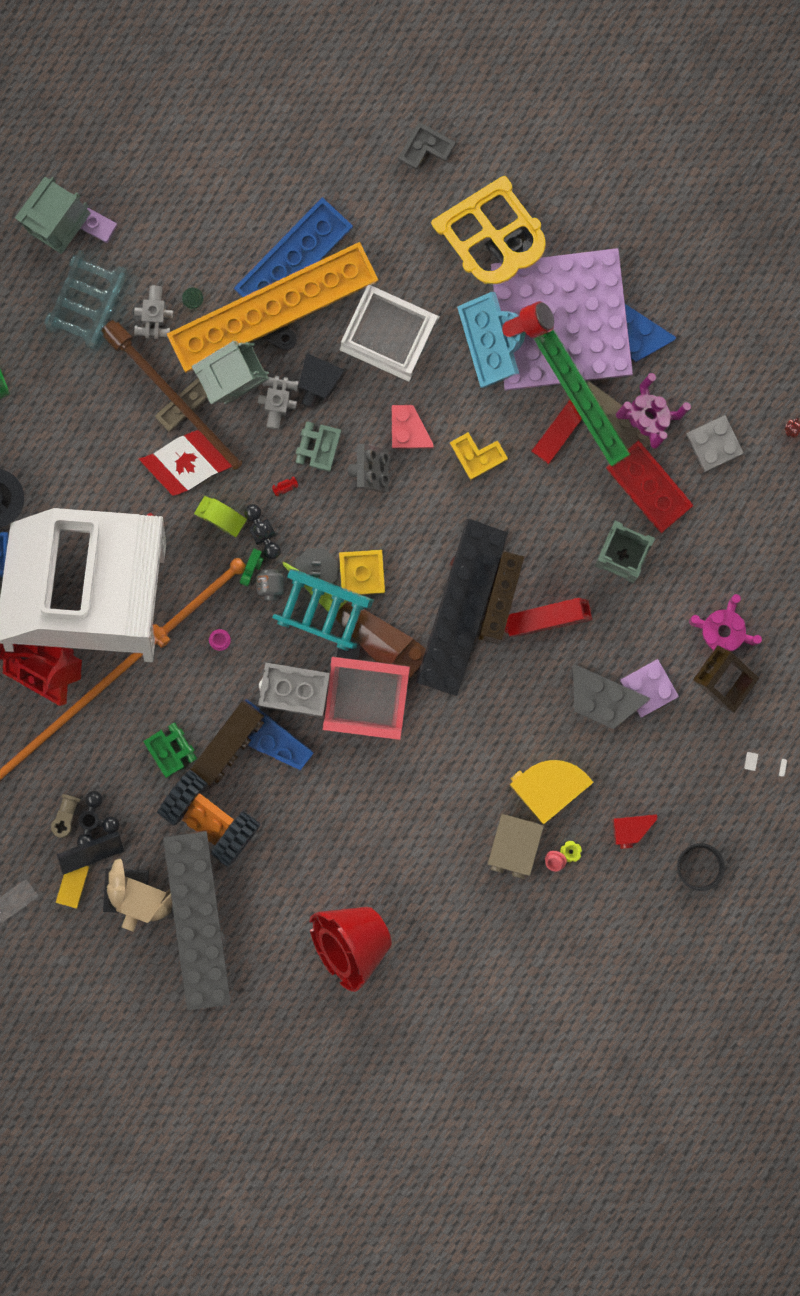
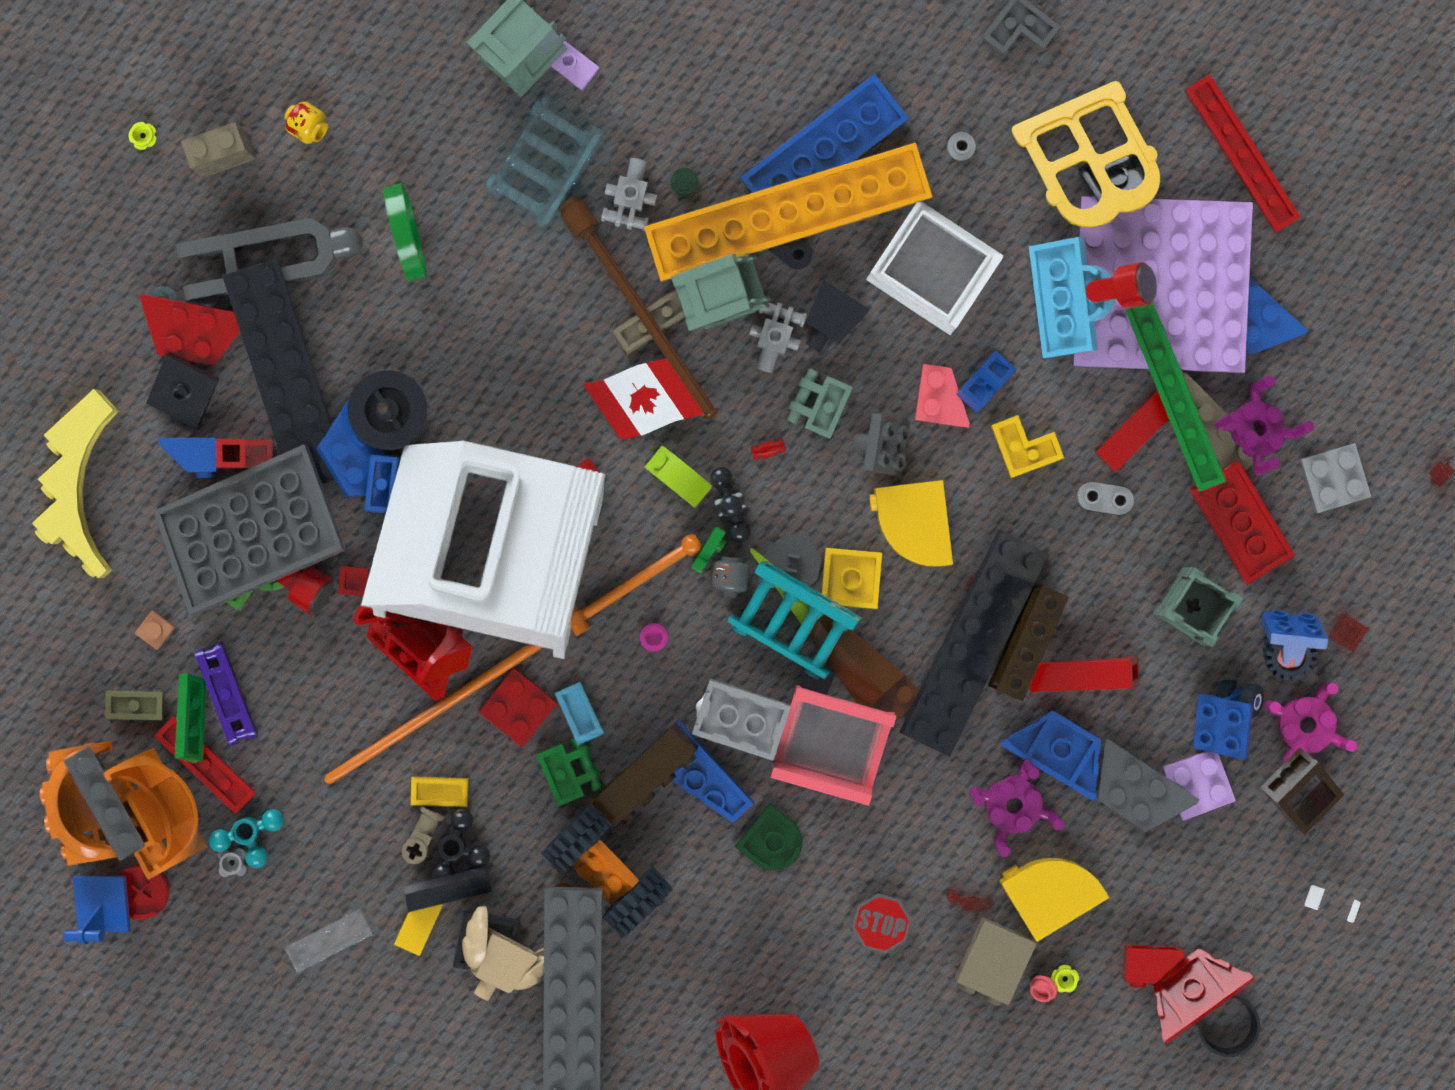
camera: 15 degrees right, 5 degrees up
(74, 781) = (439, 791): none -> yellow tile
(124, 708) = (518, 707): none -> red plate
(171, 705) = (579, 713): none -> medium azure tile
(332, 780) = (771, 840): none -> dark green tile
(395, 247) = (957, 154): none -> light grey plate
(403, 523) = (915, 521): none -> yellow brick
(424, 829) = (881, 923): none -> piece
(441, 411) = (986, 381): none -> blue slope
(488, 805) = (968, 903): none -> clear red piece
(522, 730) = (1020, 819): none -> magenta plate
(539, 678) = (1060, 751): none -> blue wing
(544, 485) = (1105, 498): none -> light grey plate
(605, 214) = (1242, 153): none -> red plate
(660, 634) = (1226, 718): none -> blue plate
(670, 844) = (1195, 990): none -> wing
(700, 571) = (1291, 643): none -> blue plate
(742, 557) = (1347, 632): none -> clear red plate

